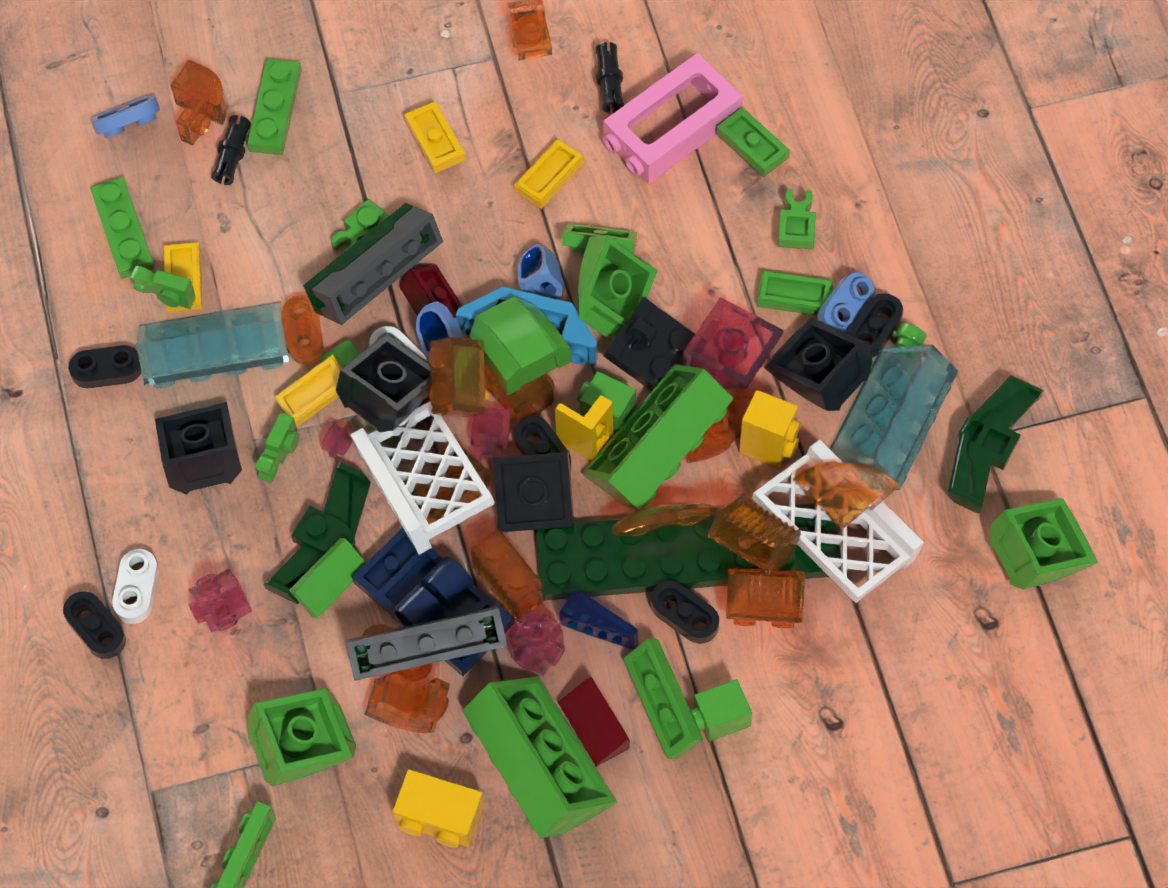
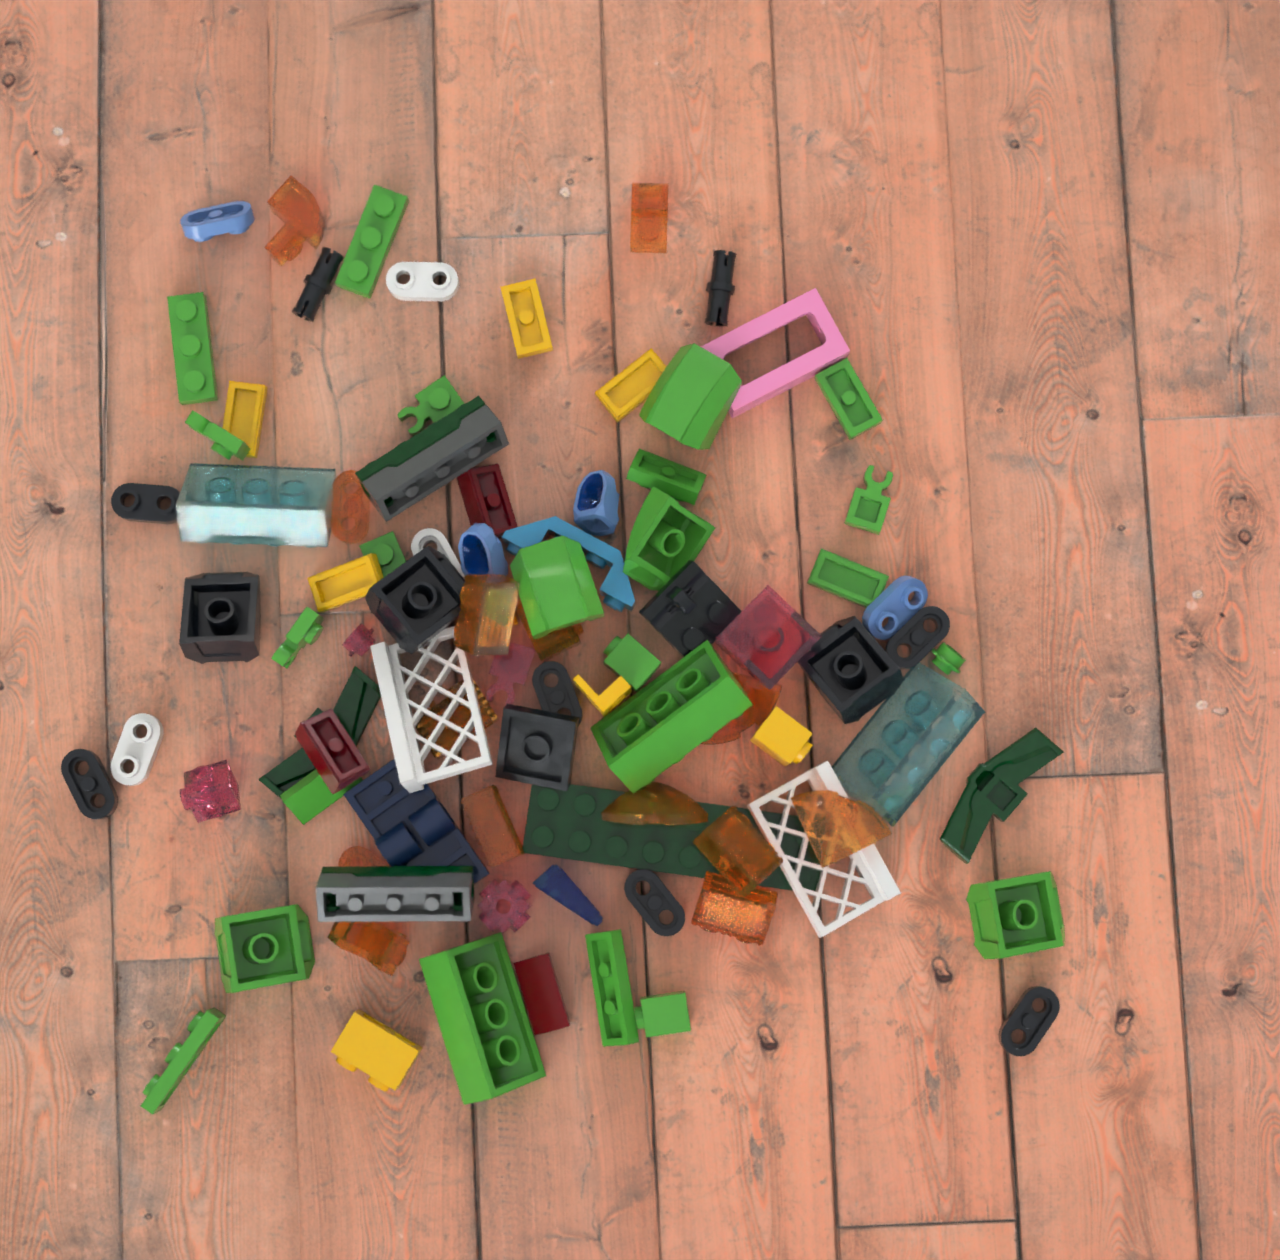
camera: 10 degrees right, 20 degrees up
(329, 129) = (421, 283): none -> white plate
(331, 534) = (331, 750): none -> dark red slope
(607, 161) = (692, 397): none -> bright green slope
(1084, 642) = (1031, 1023): none -> black plate

